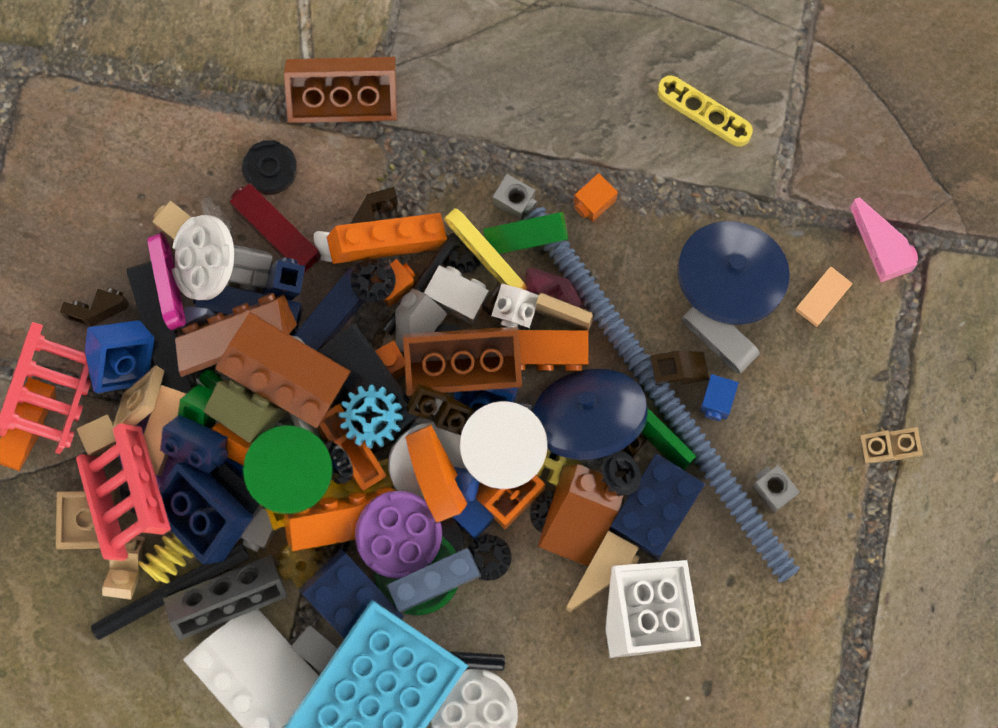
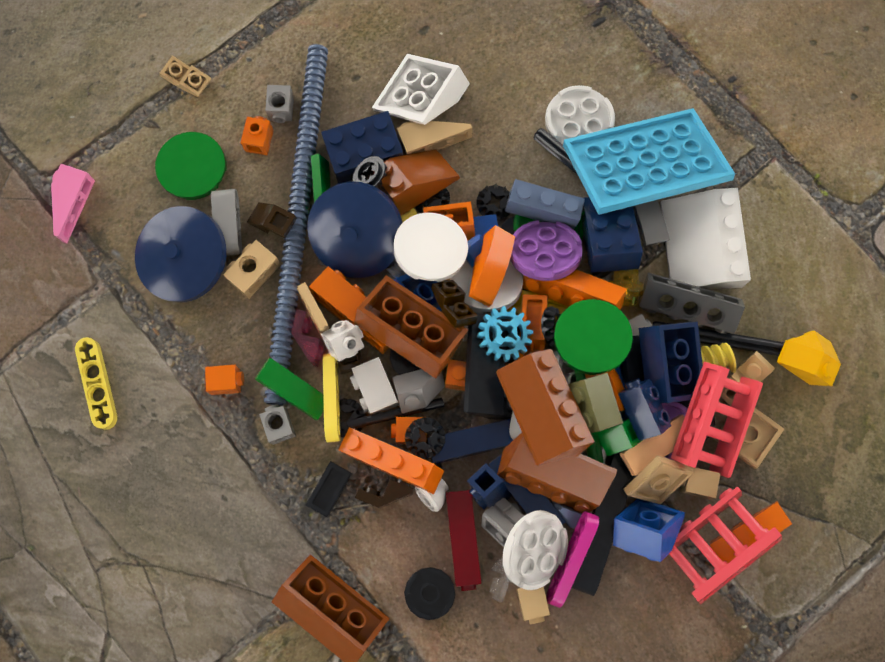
camera: 140 degrees left, 0 degrees up
(74, 632) = (810, 359): none -> yellow slope
(104, 306) = (628, 581): dark brown slope -> none
(425, 182) = (329, 489): none -> black tile
(654, 295) = (250, 282): none -> tan brick
(718, 398) = (264, 184): blue brick -> none
(768, 440) = (257, 135): none -> orange brick
(804, 364) = (190, 165): none -> green tile
(823, 296) = (138, 198): light nougat tile -> none

